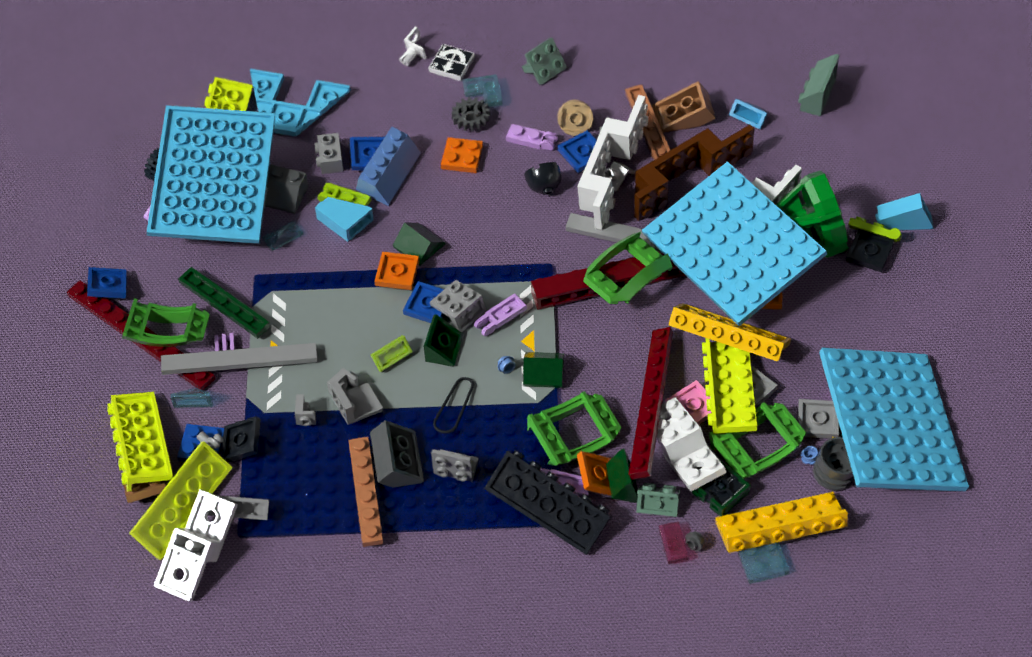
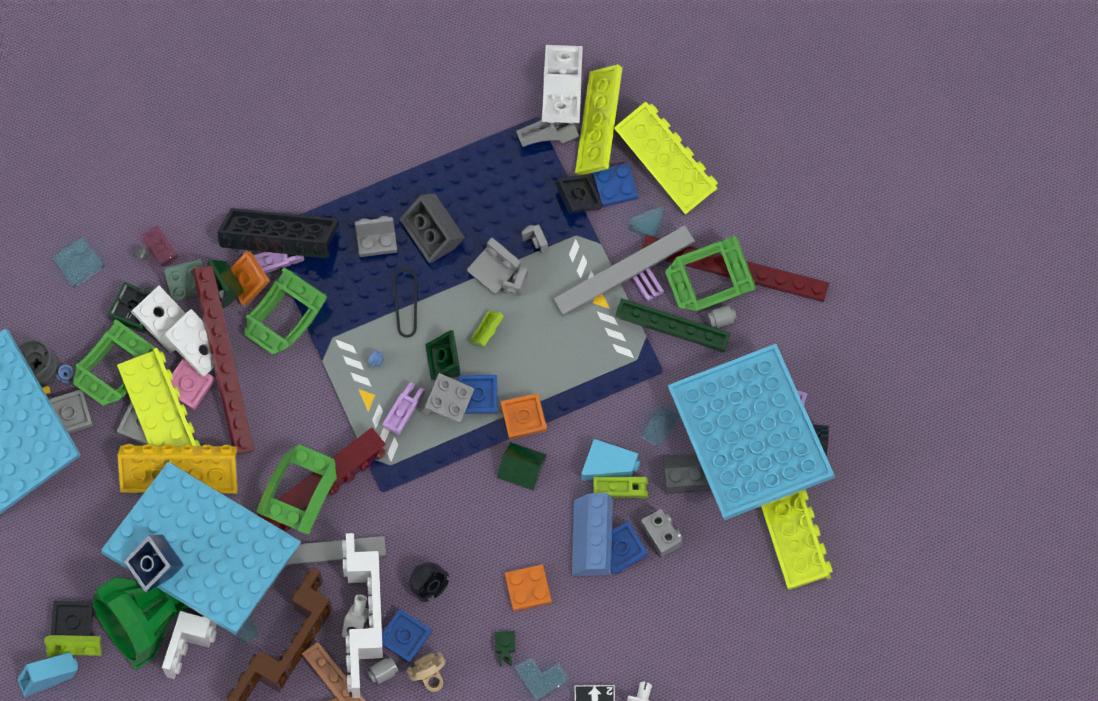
camera: 155 degrees right, 15 degrees up
(106, 282) = (793, 300): blue plate -> none
(177, 294) = (721, 317): none -> light grey brick
(212, 442) = (598, 177): light grey arm -> none
(290, 117) = (731, 563): medium azure wing -> none
(365, 492) = (445, 190): nougat plate -> none
(470, 113) = (548, 640): dark grey gear -> none
(501, 123) = (505, 644): none -> dark green plate
(531, 137) = (467, 637): lavender hinge -> none
(543, 369) = (340, 371): dark green slope -> none
(780, 219) = (153, 562): none -> dark blue slope
(781, 522) = (70, 295): yellow bracket -> none

